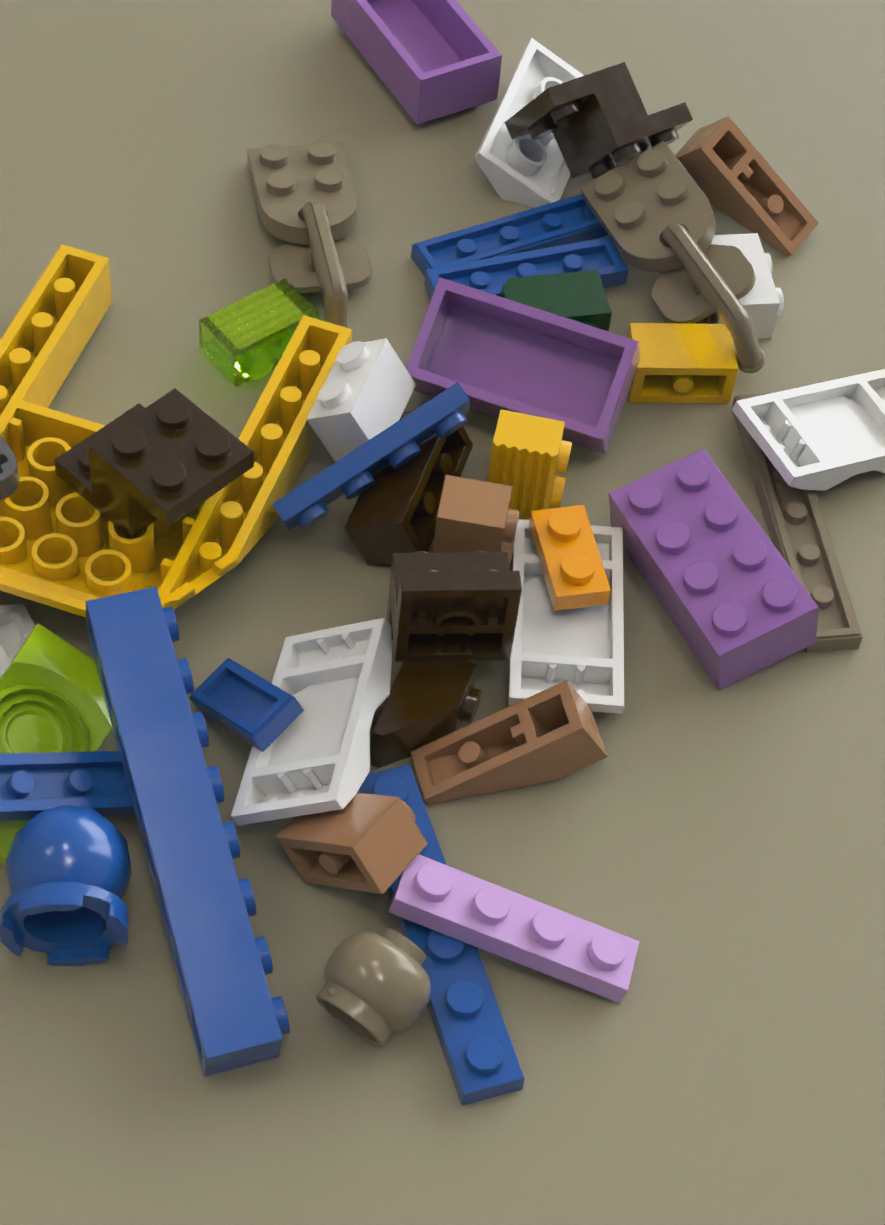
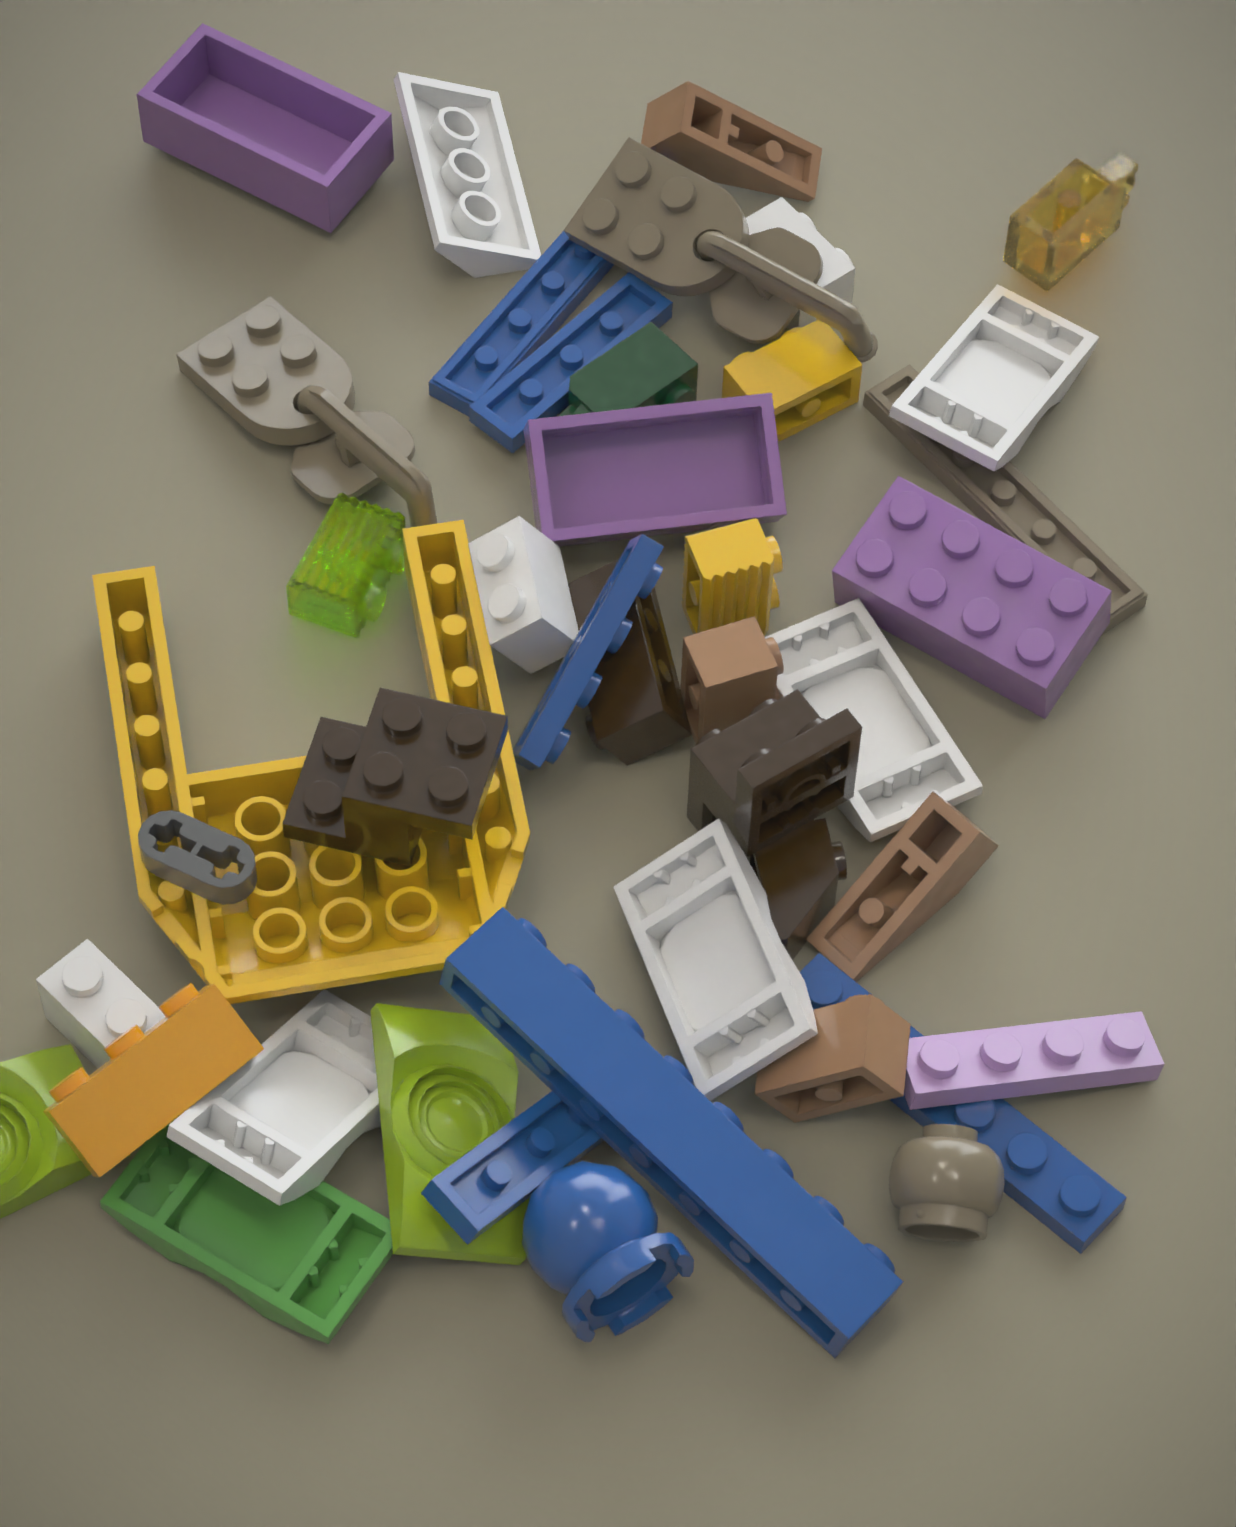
camera: 25 degrees left, 5 degrees up
(246, 704) = (638, 974): blue tile -> none
(569, 557) = (834, 657): light orange plate -> none
(597, 121) = (545, 146): dark brown bracket -> none

